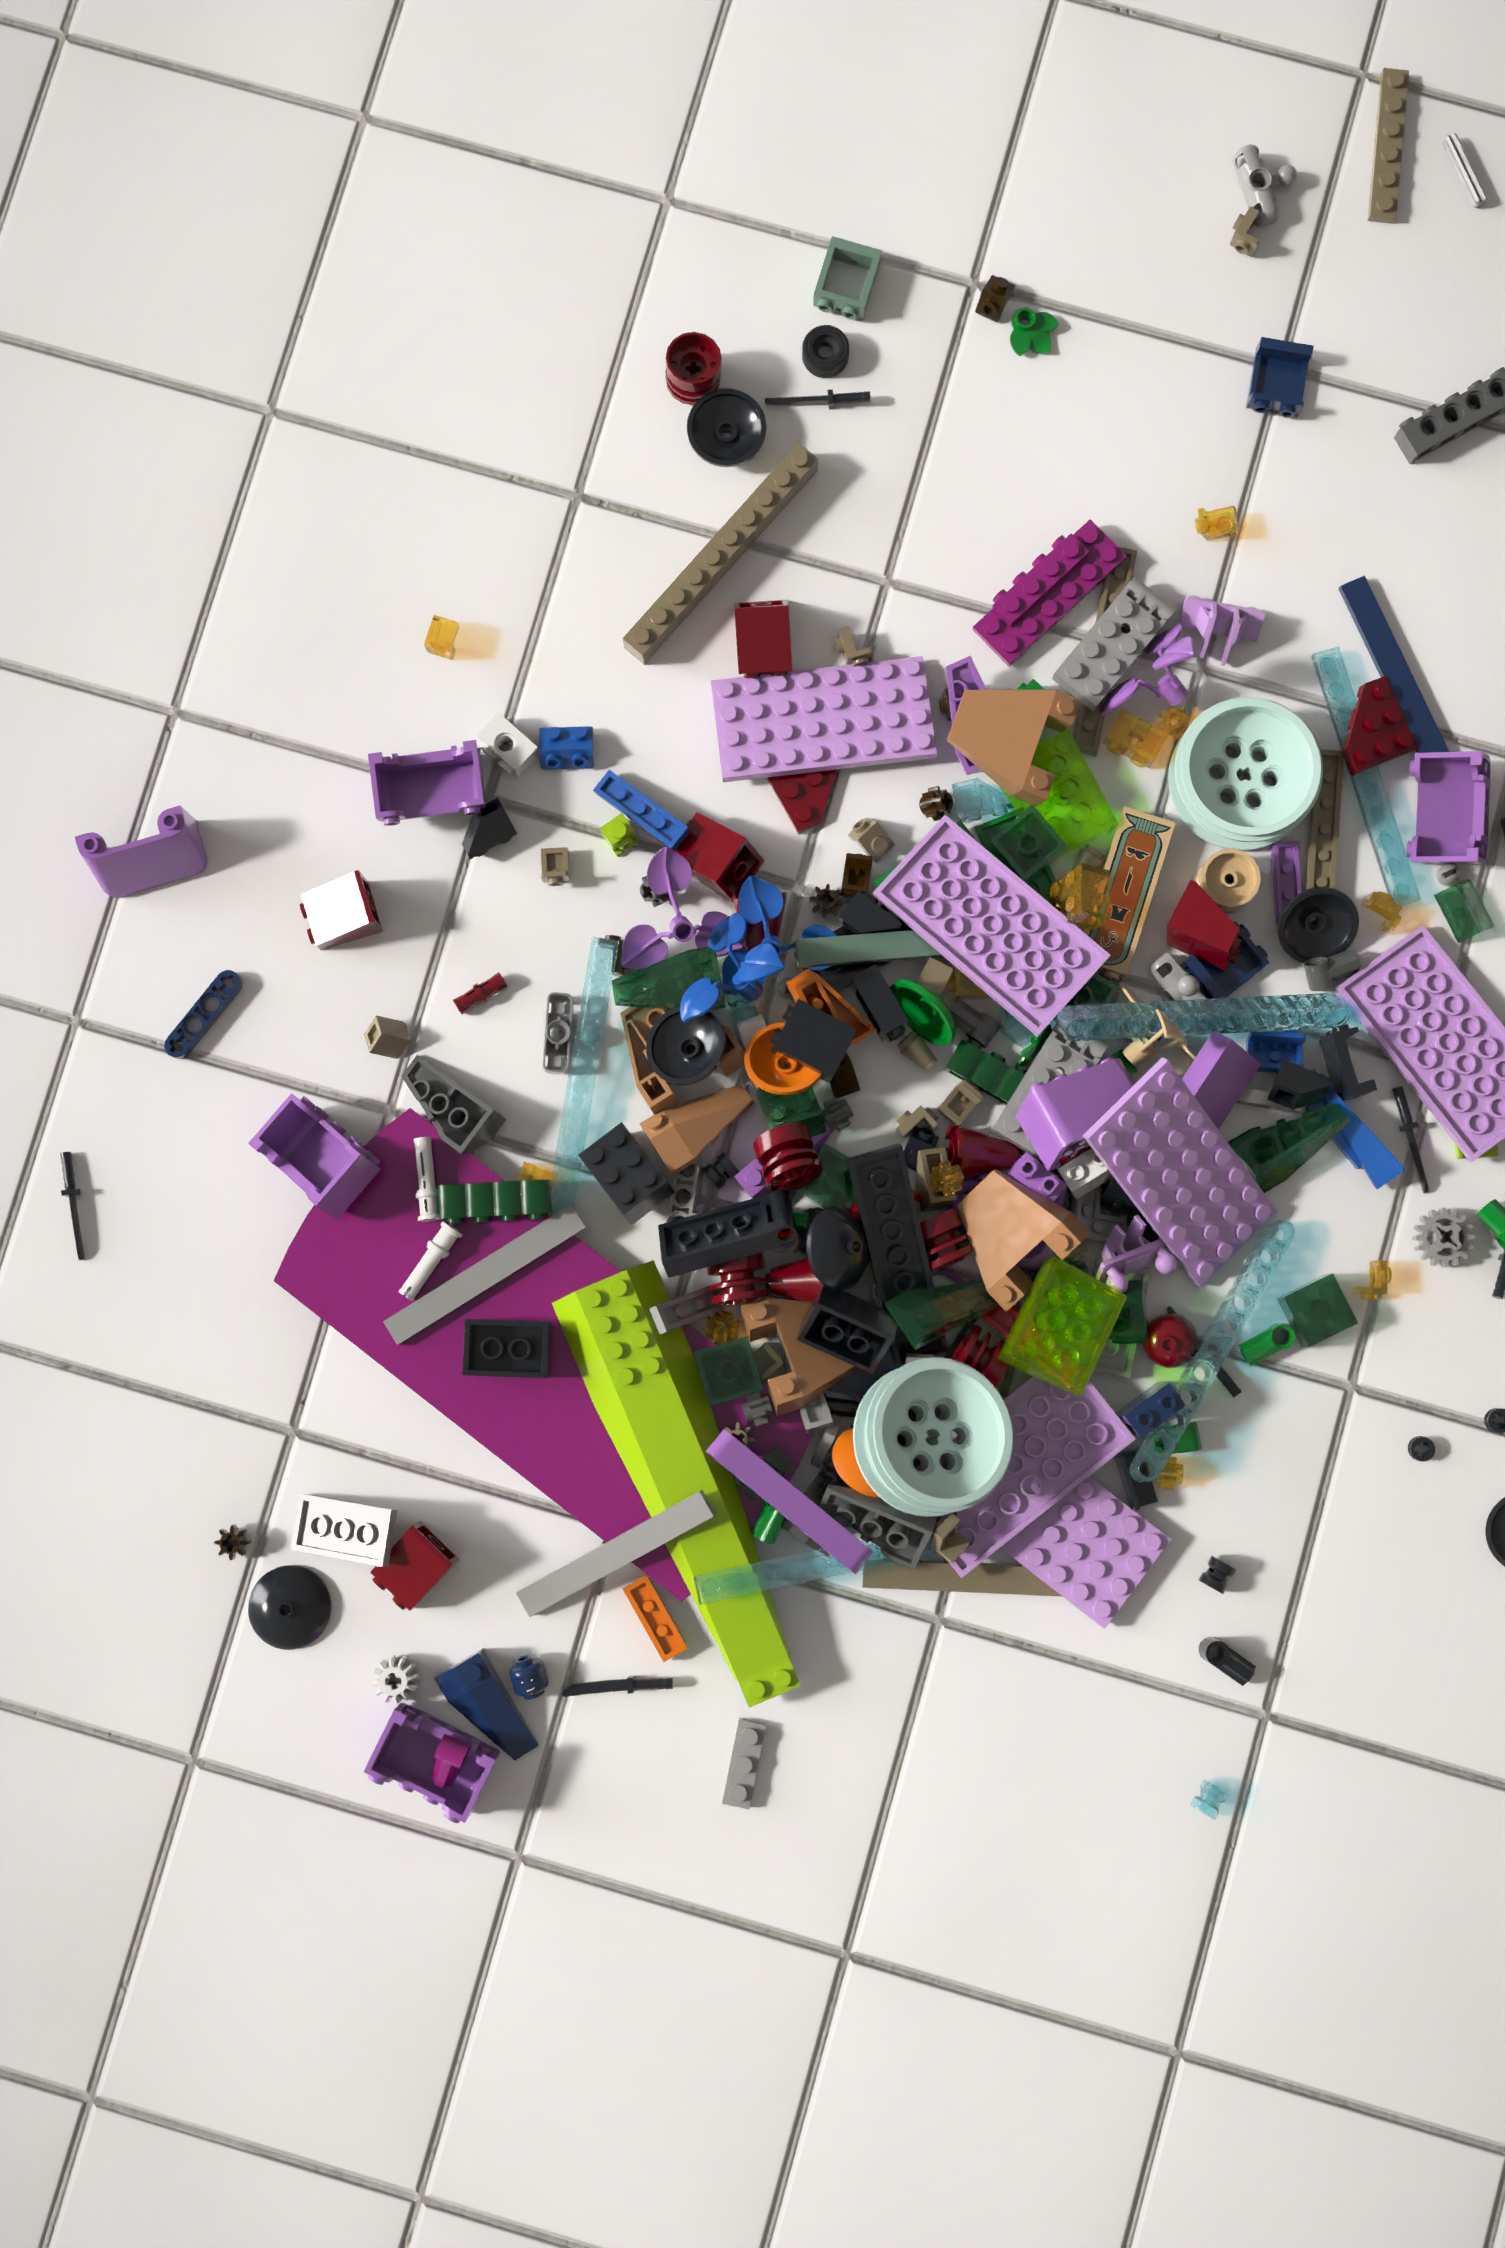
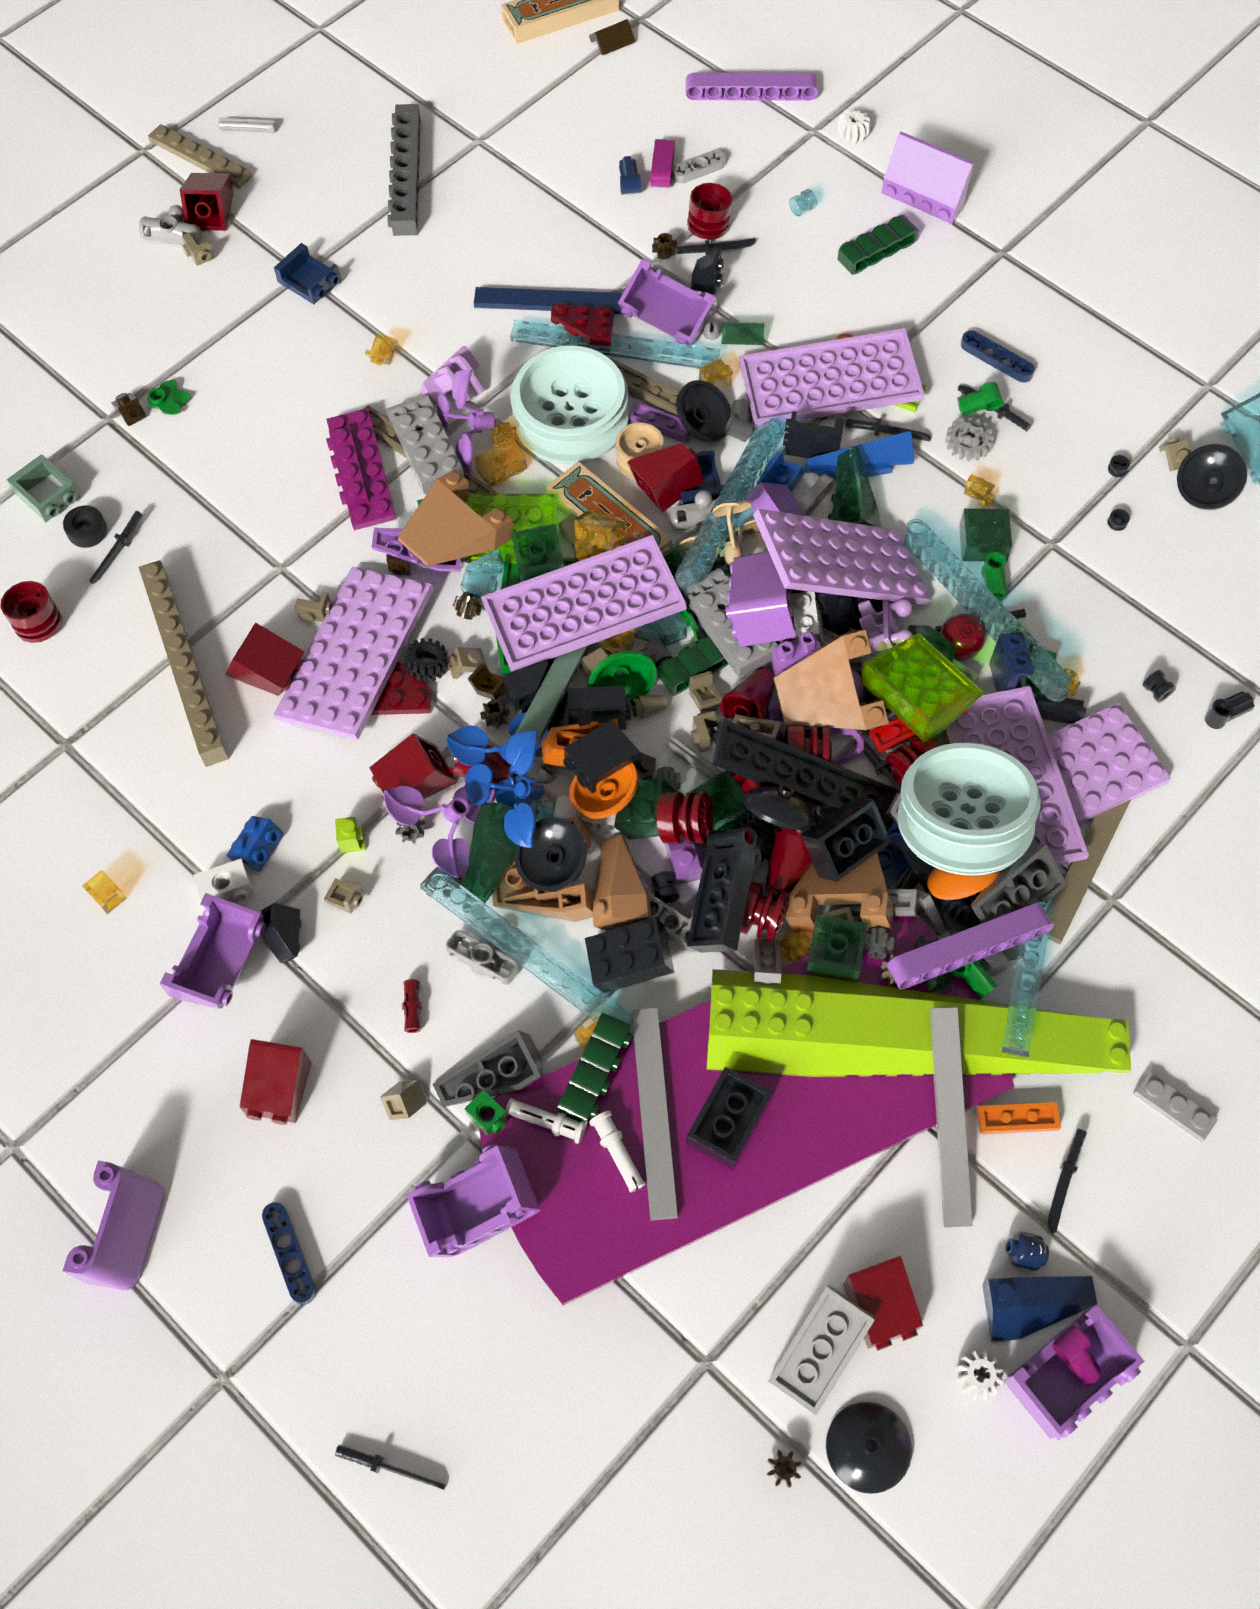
camera: 65 degrees left, 20 degrees down
(398, 1112) = (478, 1106): none -> green brick
(641, 810) = (341, 806): blue plate -> none
(726, 412) = (88, 602): black dish -> none
(865, 793) = (430, 650): none -> black tyre
(881, 1121) = (692, 758): none -> light grey axle
(938, 1310) = (864, 767): clear green wedge -> none
(946, 1178) = (758, 720): clear yellow gear -> none
(947, 1539) = (1058, 845): dark tan bracket -> none
(1299, 1086) = (814, 469): black slope -> none
(1322, 199) = (207, 200): none -> dark red slope

